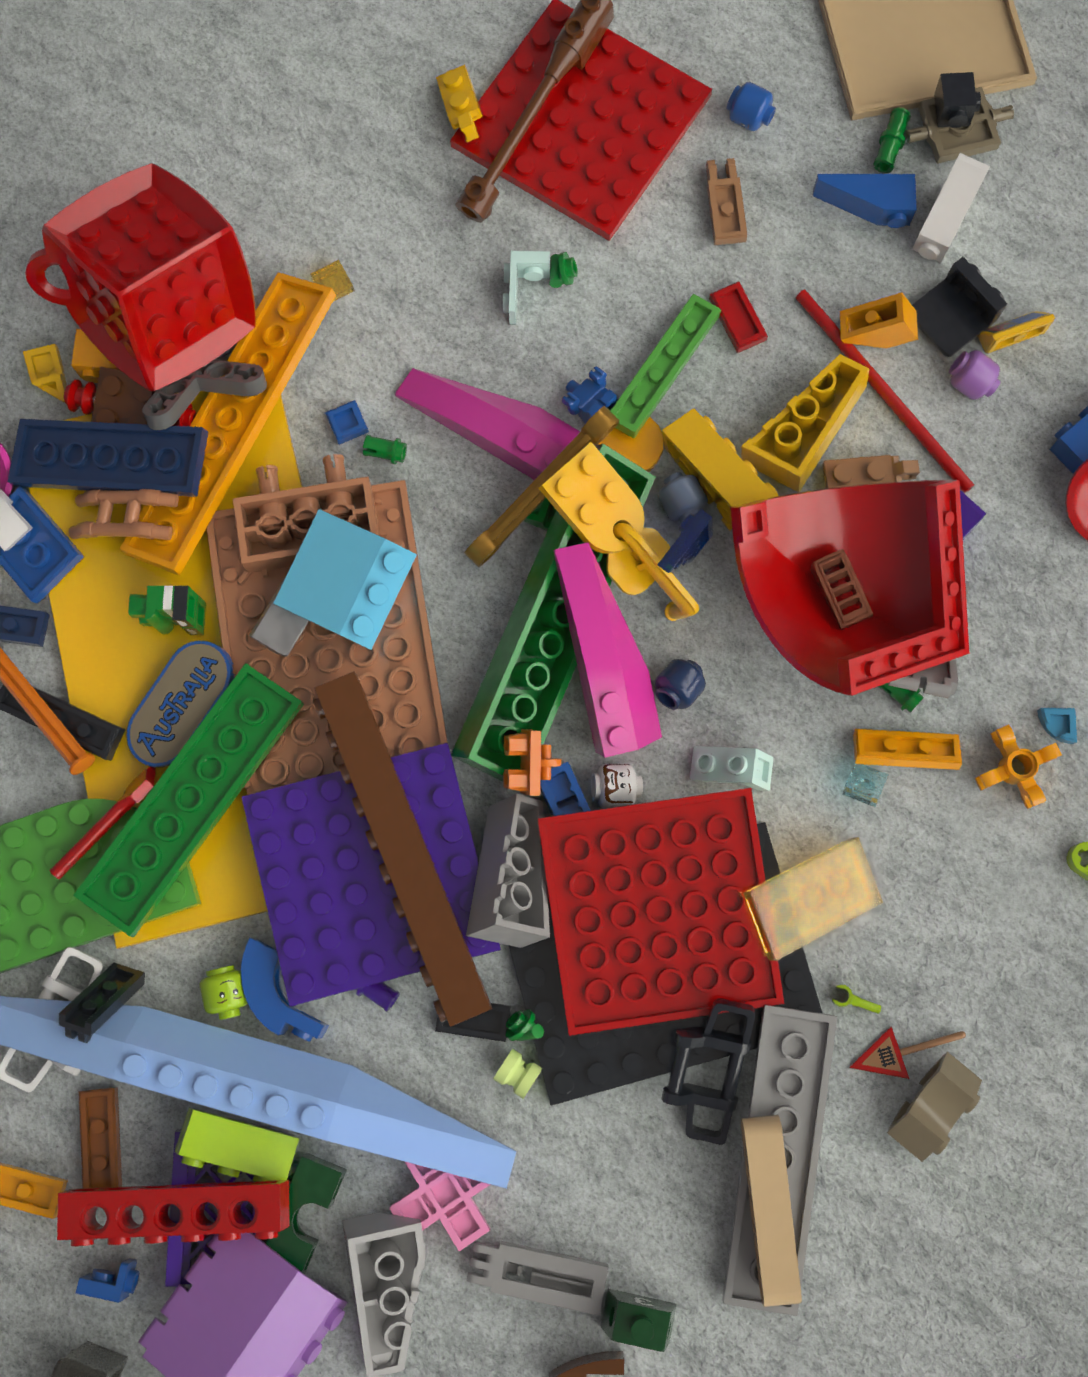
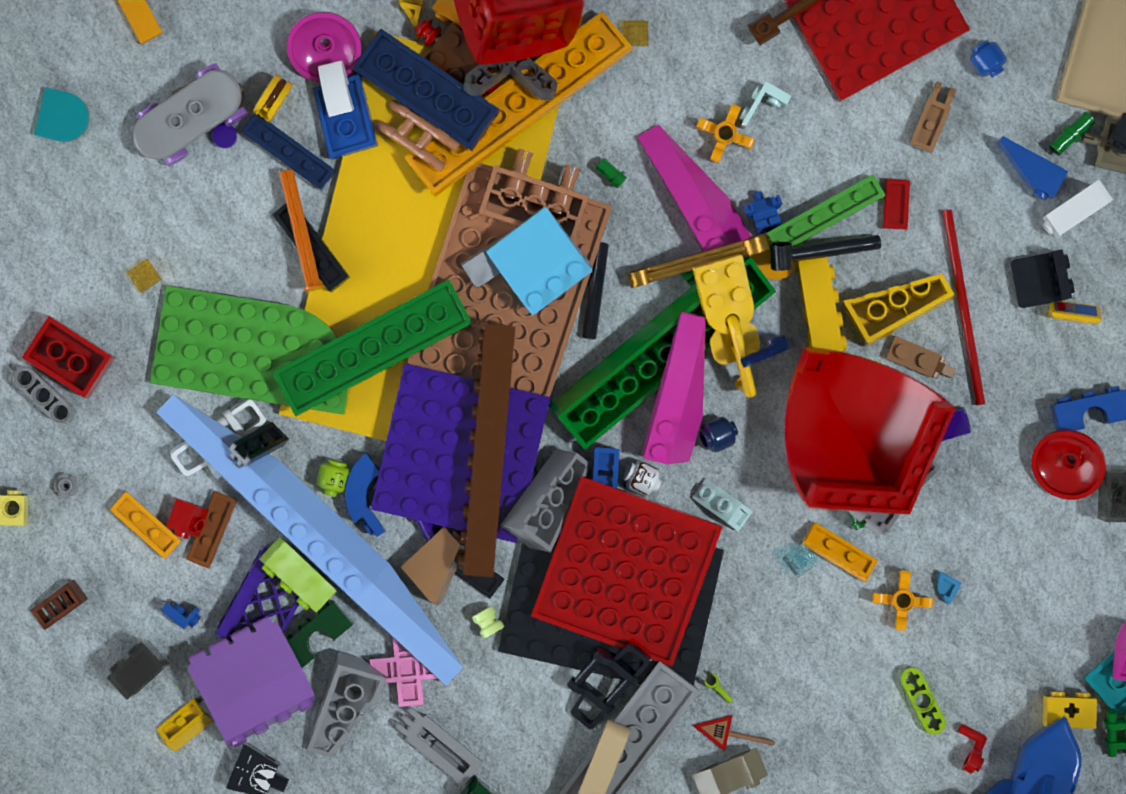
camera: 20 degrees right, 10 degrees up
(57, 1148) = (187, 519): none -> red brick
(78, 1212) = (188, 561): red brick -> none
(133, 794) = (339, 324): red piece -> none
(169, 607) = (418, 213): green hips -> none
(178, 702) = (394, 280): dark tan tile -> none
(347, 422) = (595, 139): blue tile -> none
(411, 1035) = (435, 564): none -> medium nougat slope
(440, 596) = (595, 293): none -> black axle
(470, 338) = (737, 138): none -> light orange pin
(522, 1026) = (505, 595): green plate -> none
(535, 762) = (598, 439): orange hips -> none
(562, 270) = (795, 109): green plate -> none
(642, 427) = (783, 254): none -> black piece
(682, 496) = (788, 312): sand blue head -> none
(813, 898) = (725, 613): clear yellow tile -> none
(846, 571) = (851, 410): copper slope -> none
(880, 323) = (985, 262): light orange slope -> none
(974, 374) = (1028, 330): medium lavender head -> none

